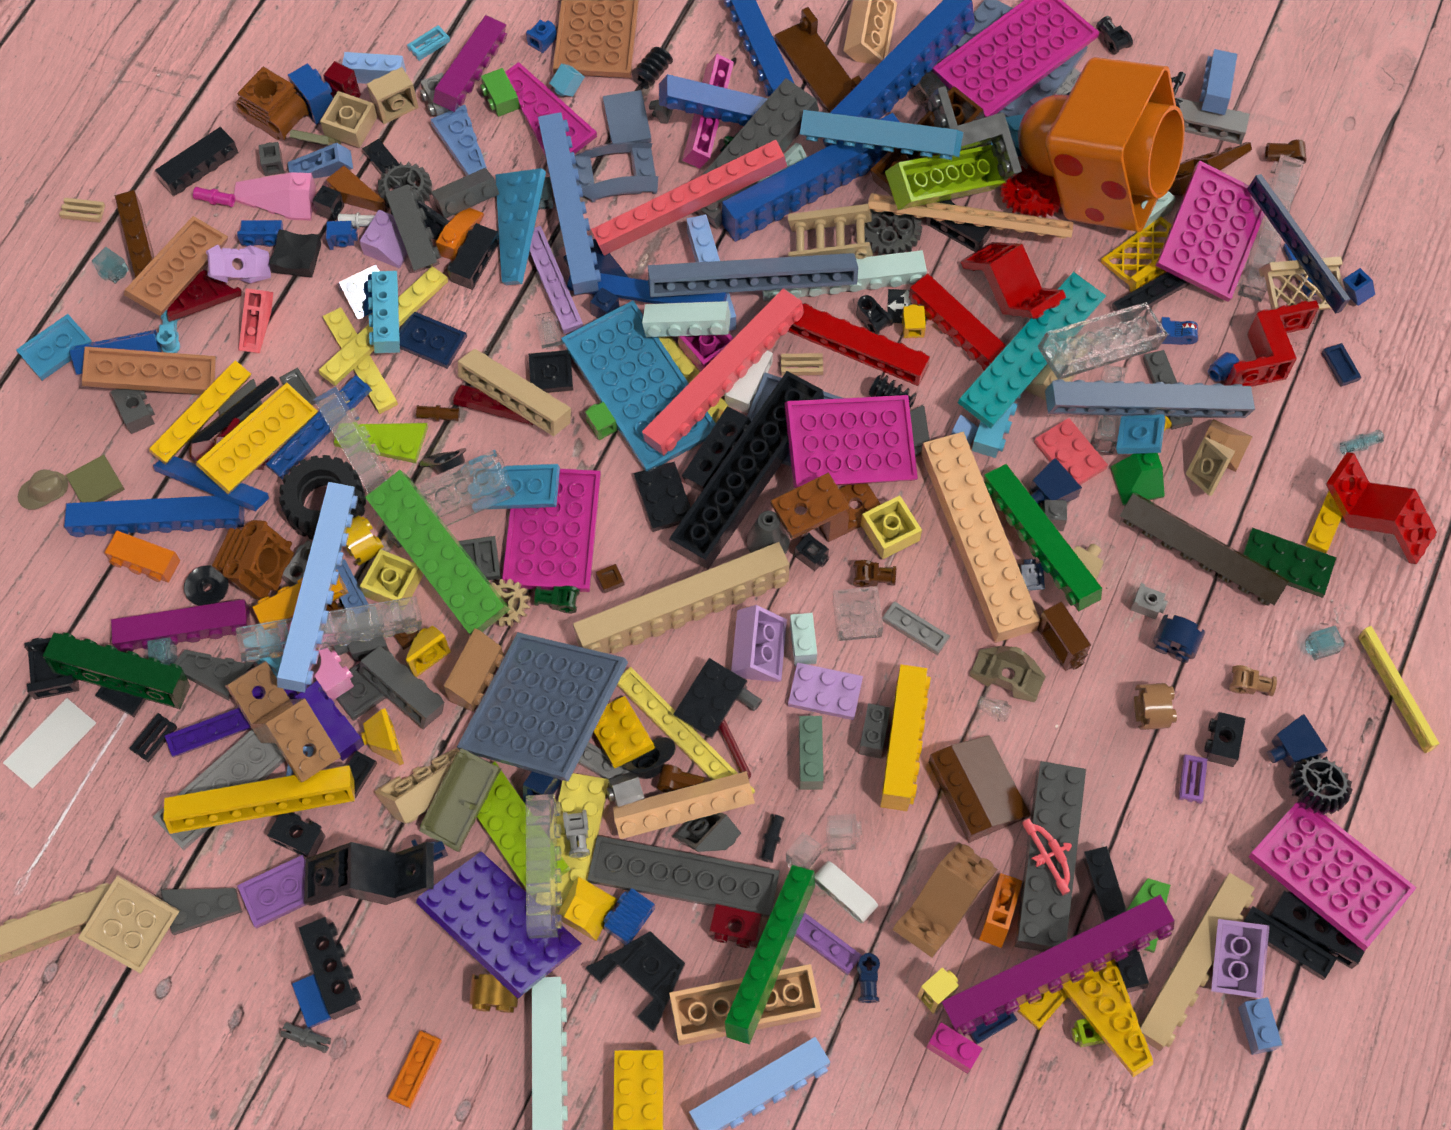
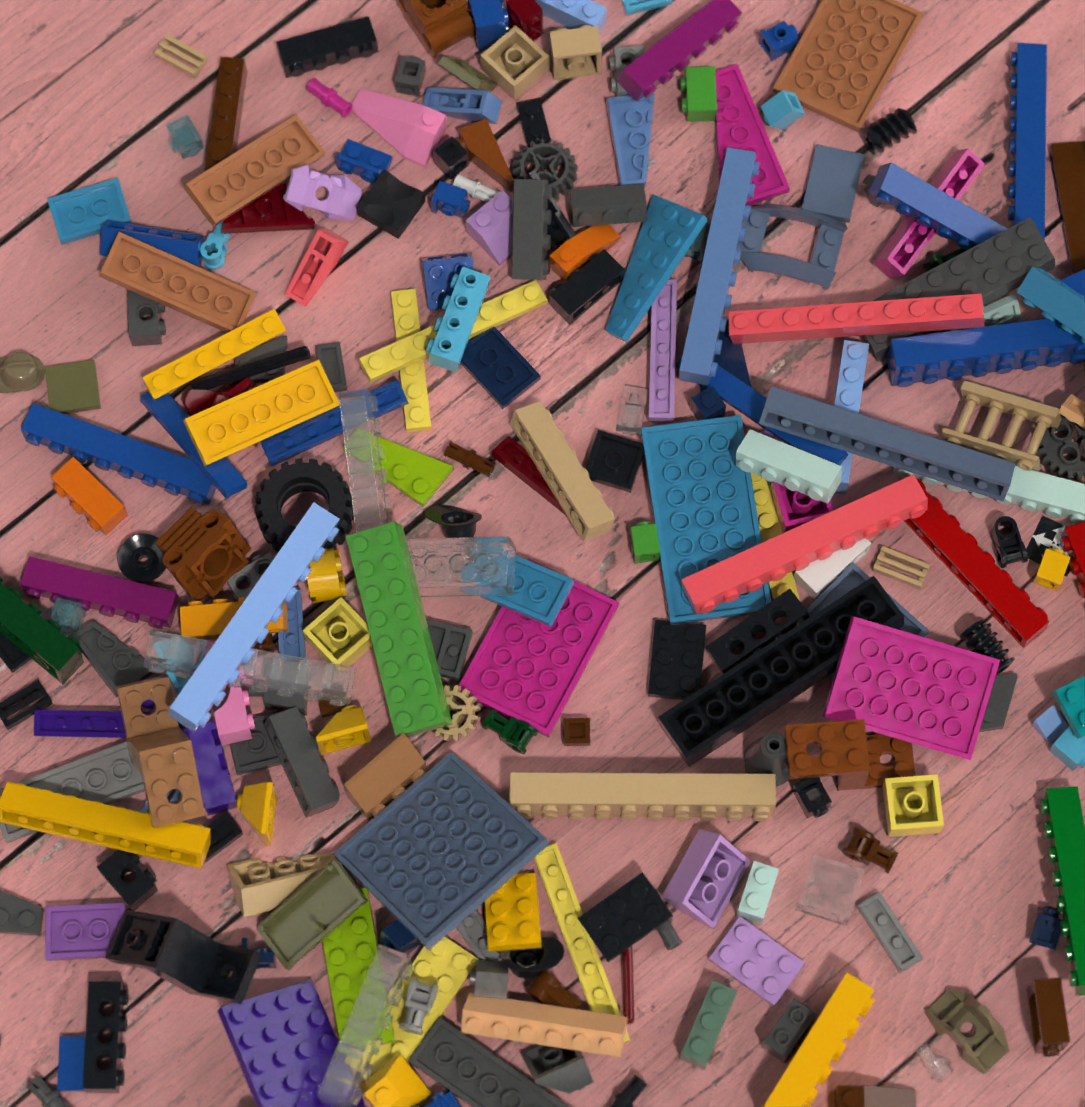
camera: 25 degrees right, 5 degrees up
(980, 537) = (1008, 858): light nougat brick -> none

